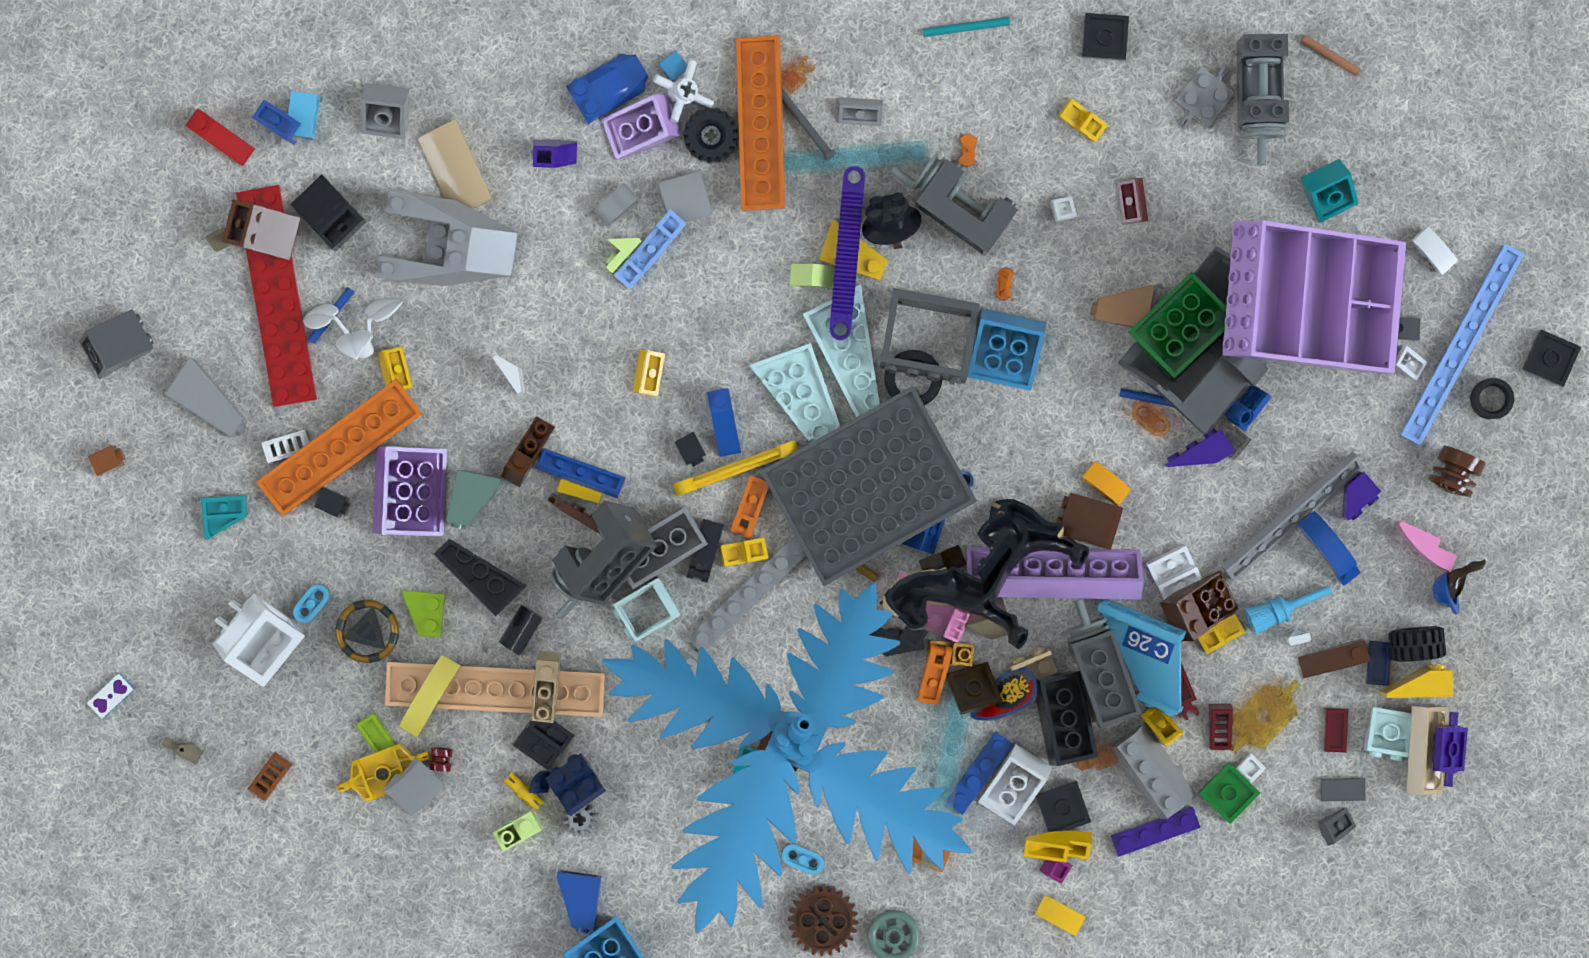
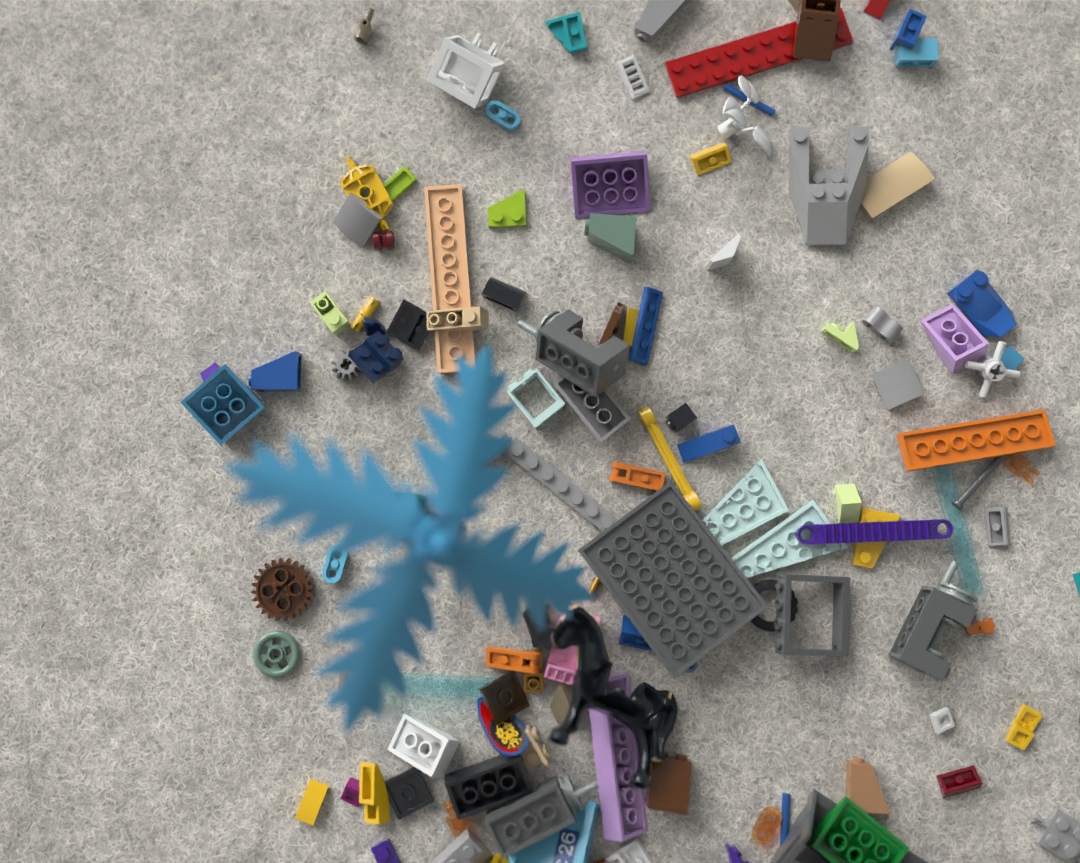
camera: 85 degrees right, 5 degrees down
(276, 780) = (340, 88): dark orange slope -> none
(328, 213) = (835, 85): black slope -> none
(332, 502) = (591, 120): black brick -> none
(339, 447) = (639, 120): orange plate -> none
(367, 631) = (485, 163): piece -> none
(384, 110) = (931, 119): light grey slope -> none
(429, 695) = (437, 222): light yellow slope -> none
(485, 581) = (540, 258): black wedge -> none
(527, 451) = (658, 278): reddish brown slope -> none
(554, 153) = (919, 266): dark purple slope -> none
(648, 372) = (741, 373): yellow slope -> none
(650, 249) = (849, 361): light blue slope -> none
(702, 123) = (965, 390): black bush -> none
(706, 555) = (591, 444): black plate -> none
(743, 552) = (597, 476): yellow slope -> none
(890, 220) = (911, 566): black piece -> none
(946, 558) = (617, 657): dark brown slope -> none
(980, 771) = (432, 713): blue plate -> none
(1004, 283) = (867, 675): orange piece -> none
(1006, 349) = (809, 686): dark azure slope -> none
(1107, 483) = (704, 793): light orange slope -> none

